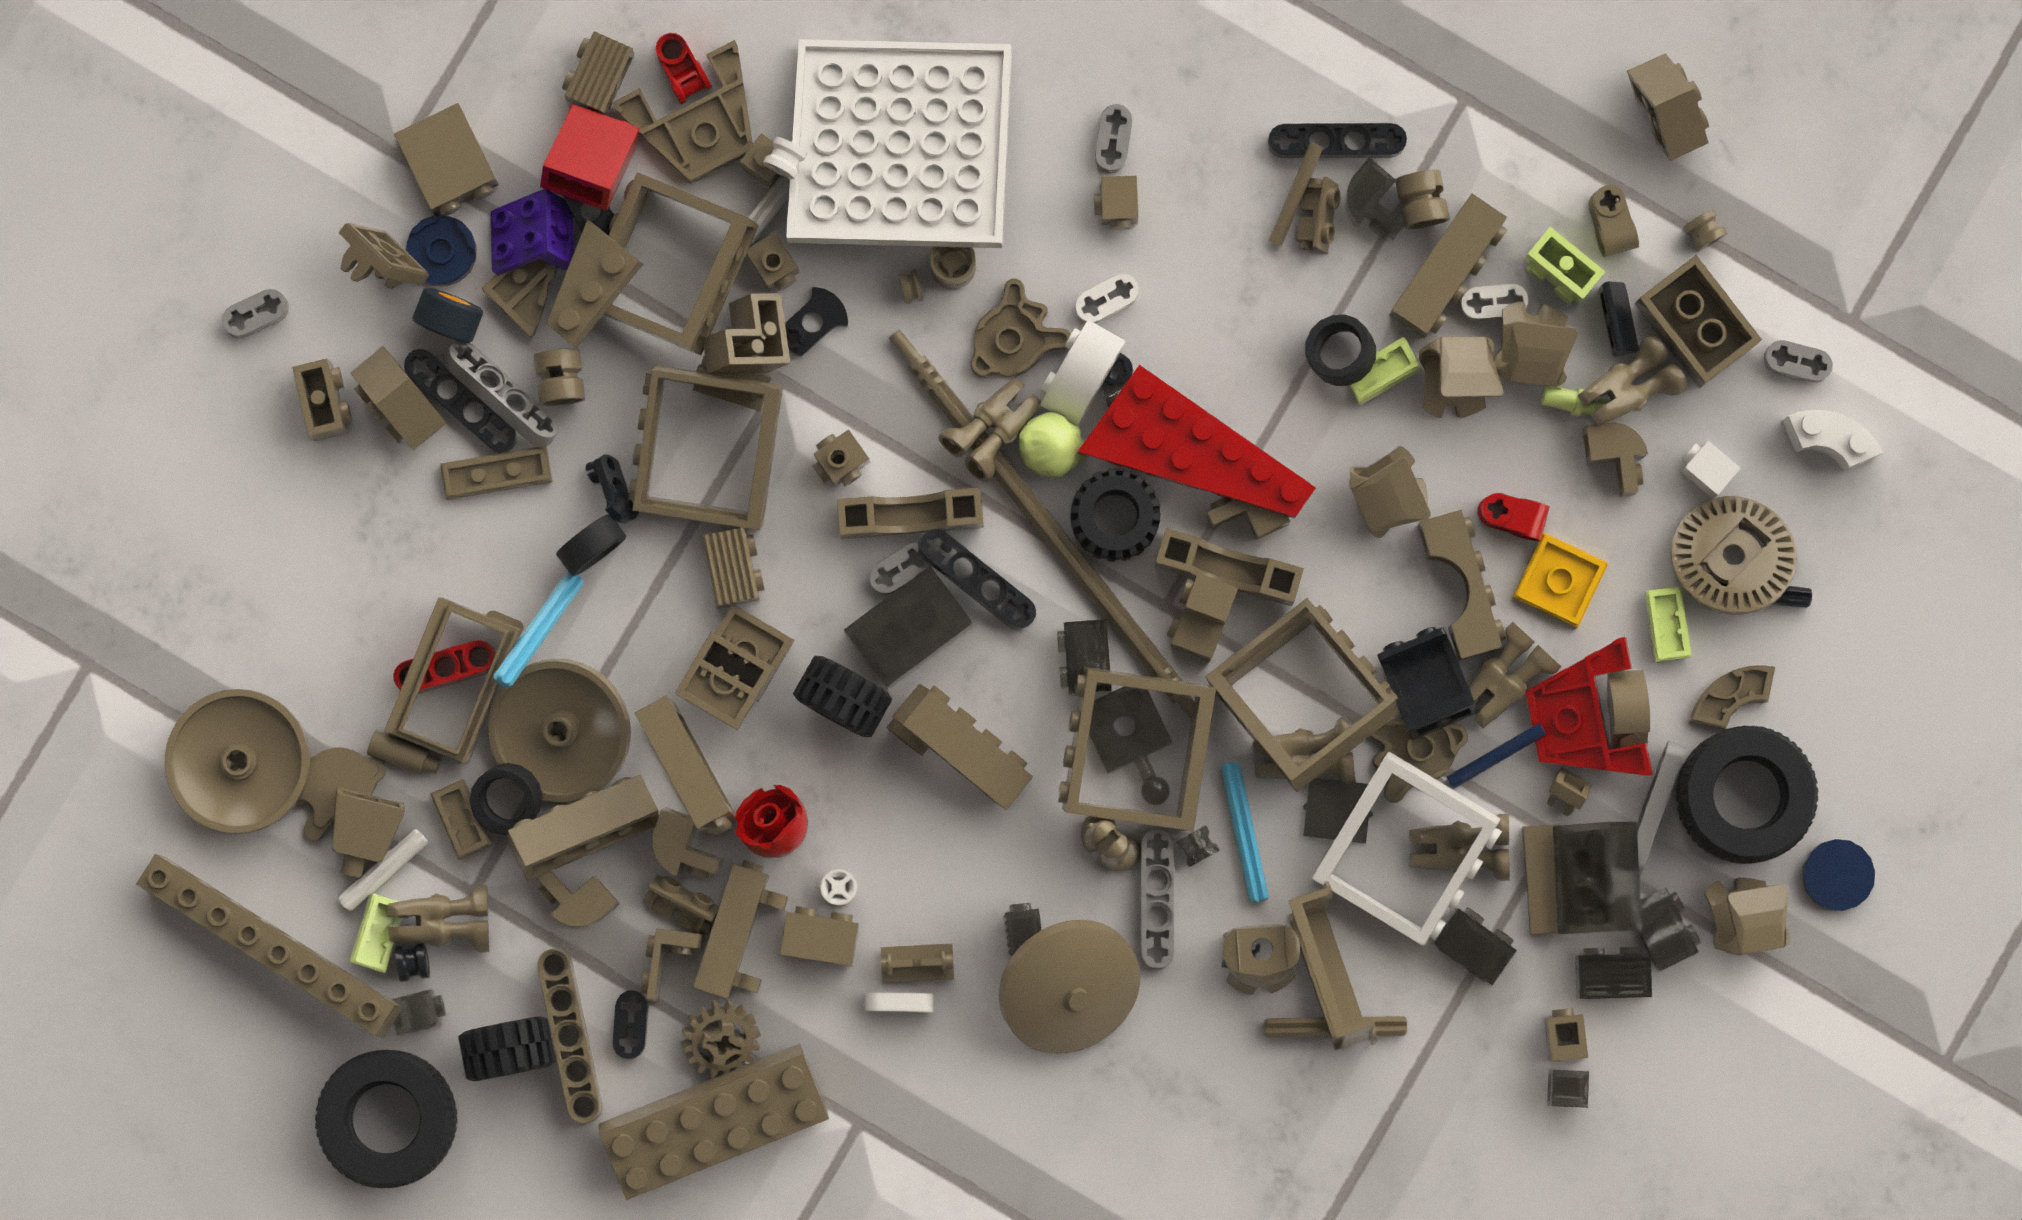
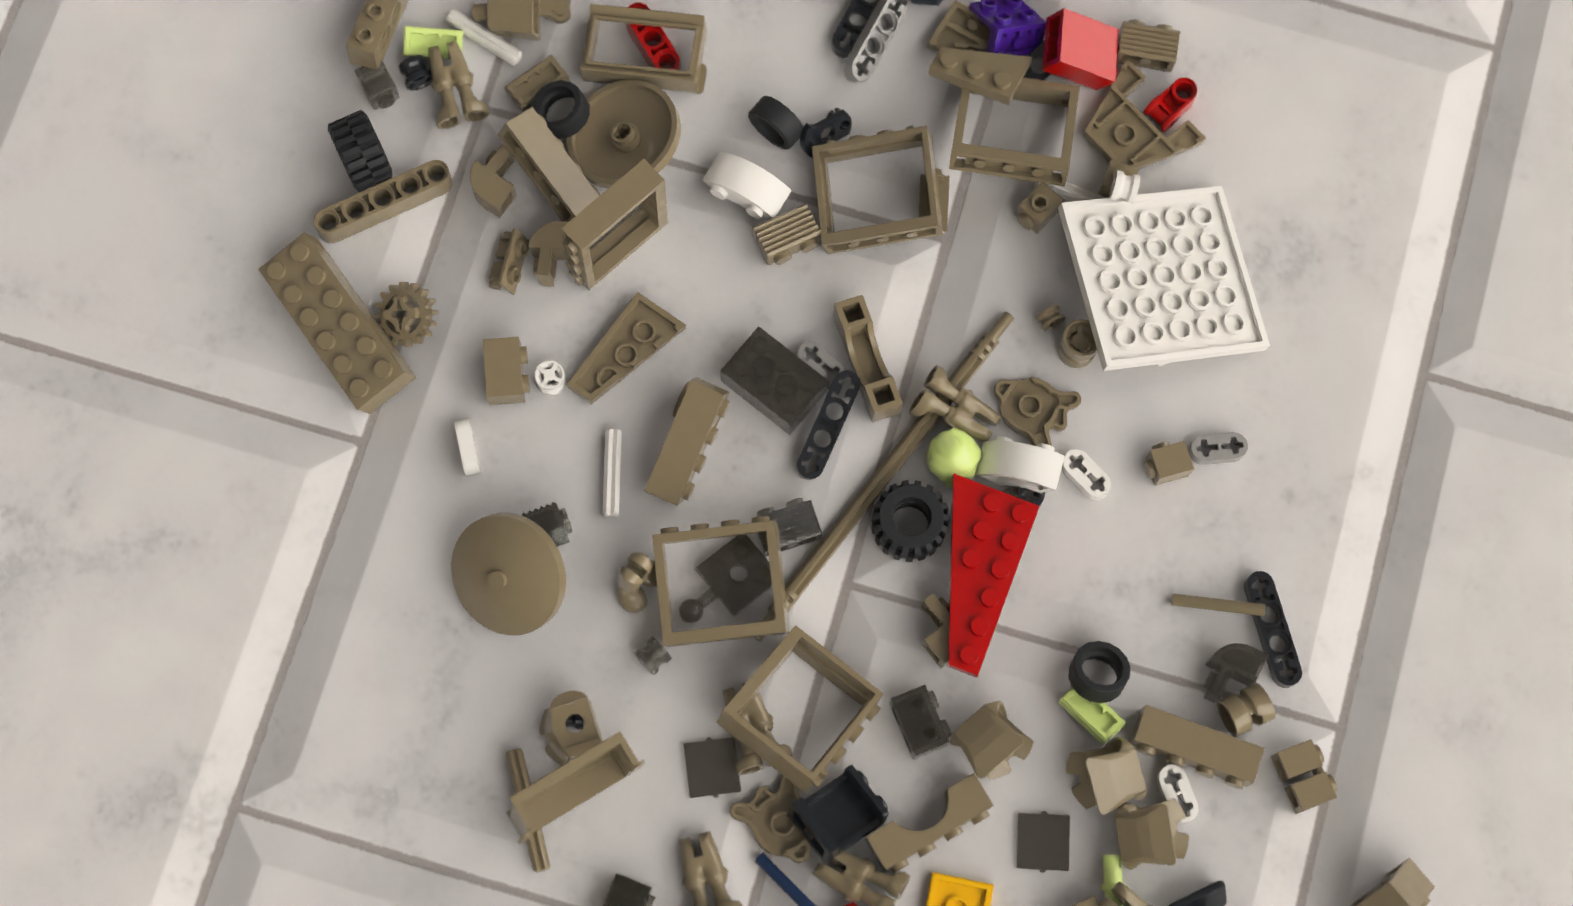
camera: 70 degrees right, 10 degrees down
(337, 1107) = (277, 45): black tyre -> none
(401, 753) = (577, 28): dark tan cylinder -> none
(496, 472) = (815, 47): dark tan tile -> none
(538, 630) = (698, 98): medium azure axle -> none
(562, 389) = (902, 71): dark tan wheel -> none
(639, 1026) = (402, 240): black beam -> none
(656, 946) = (464, 247): dark tan bracket -> none
(659, 599) = (746, 185): none -> white brick
(732, 931) = (495, 304): dark tan brick -> none
(734, 667) = (707, 251): dark tan bracket -> none
(756, 338) = (972, 207): dark tan brick -> none
(772, 822) = (589, 310): red cylinder -> none
(814, 774) = (627, 344): none -> dark tan wing
(828, 307) = (1010, 266): black piece -> none
(842, 696) = (704, 337): black tyre -> none
(844, 446) = (896, 295): dark tan brick -> none
(917, 963) = (503, 454): dark tan hinge -> none
(969, 842) = (612, 471): none -> white axle
(1162, 898) = (600, 629): light grey beam -> none
(1203, 616) = (845, 614): dark tan brick -> none
(1244, 832) = (674, 693): medium azure axle -> none
(1248, 573) = (891, 623): dark tan arch -> none
(1322, 199) = (1221, 628): dark tan hinge -> none
(1346, 565) = (920, 722): none -> clear smoke brick
(1467, 868) = (688, 885): white window -> none
(1509, 464) = (1043, 842): none -> clear smoke piece
(1519, 517) = (1001, 861): red piece -> none
(1528, 156) = (1310, 791): none -> dark tan piece
(1563, 267) = (1225, 843): yellowish green brick -> none
(1613, 228) = (1272, 880): dark tan piece -> none

